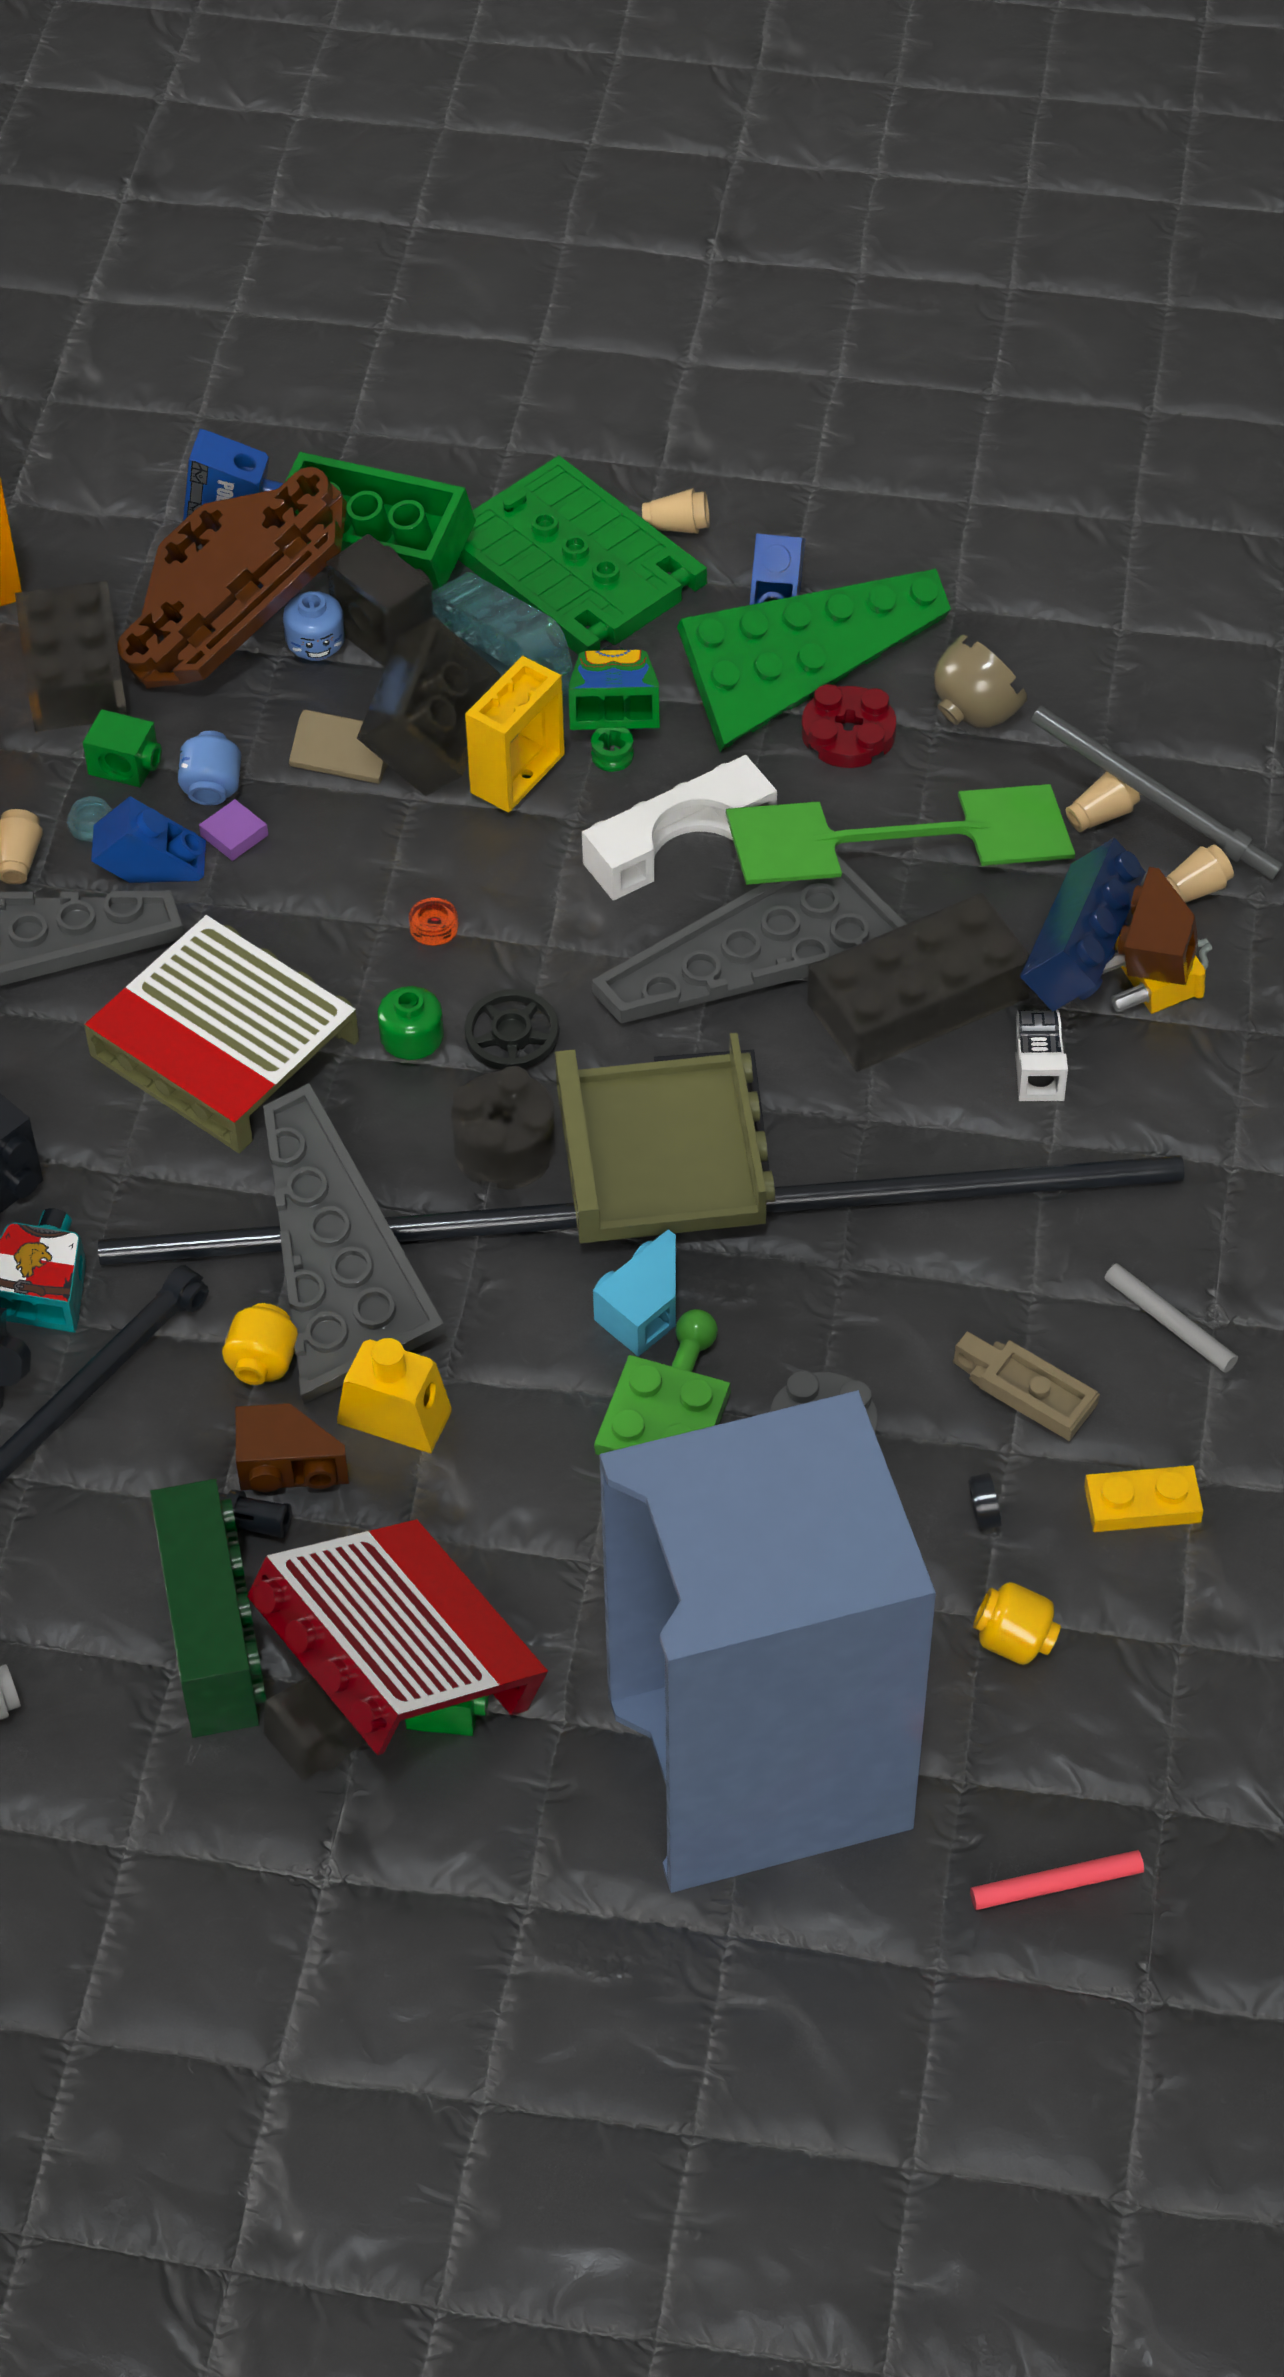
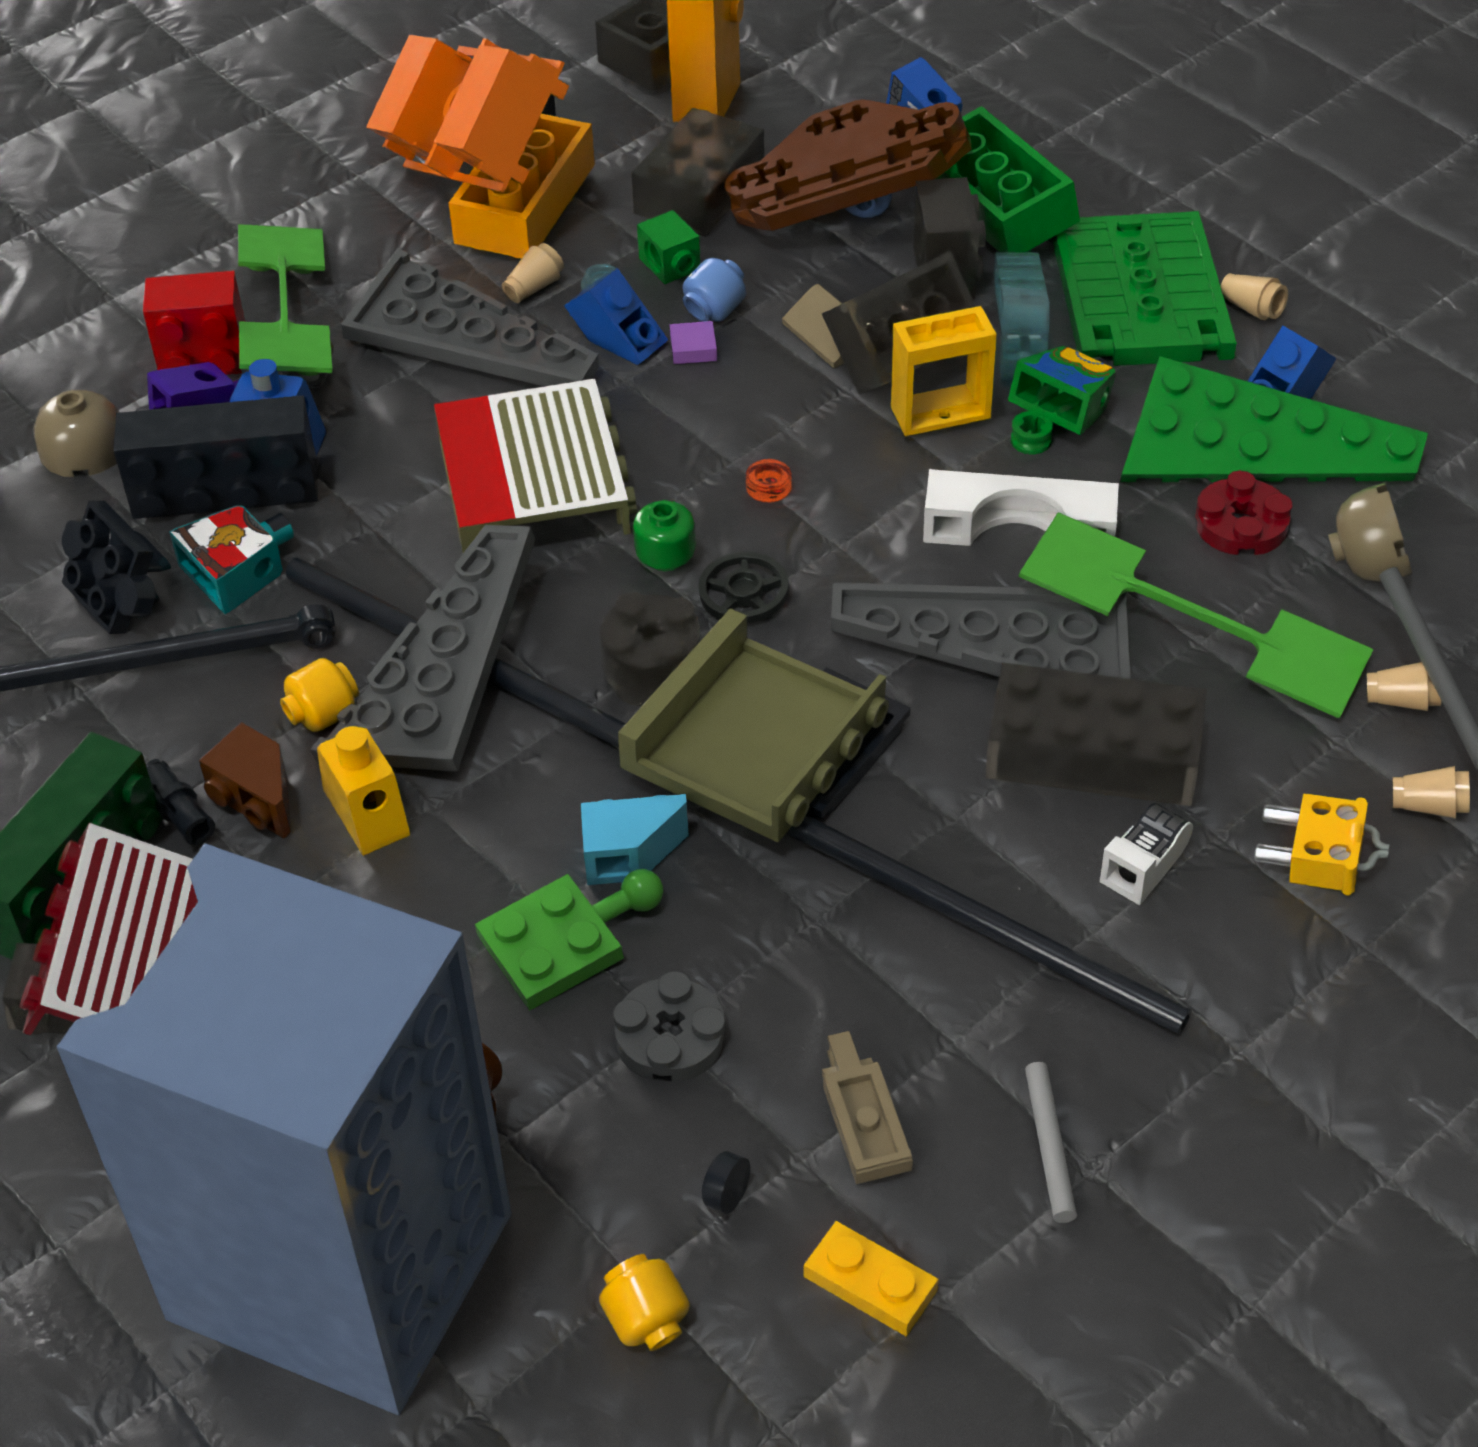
camera: 40 degrees right, 5 degrees down
(313, 625) = (887, 234): medium blue head -> none
(1083, 925) = (1272, 764): dark blue brick -> none
(1161, 934) = (1332, 808): reddish brown slope -> none

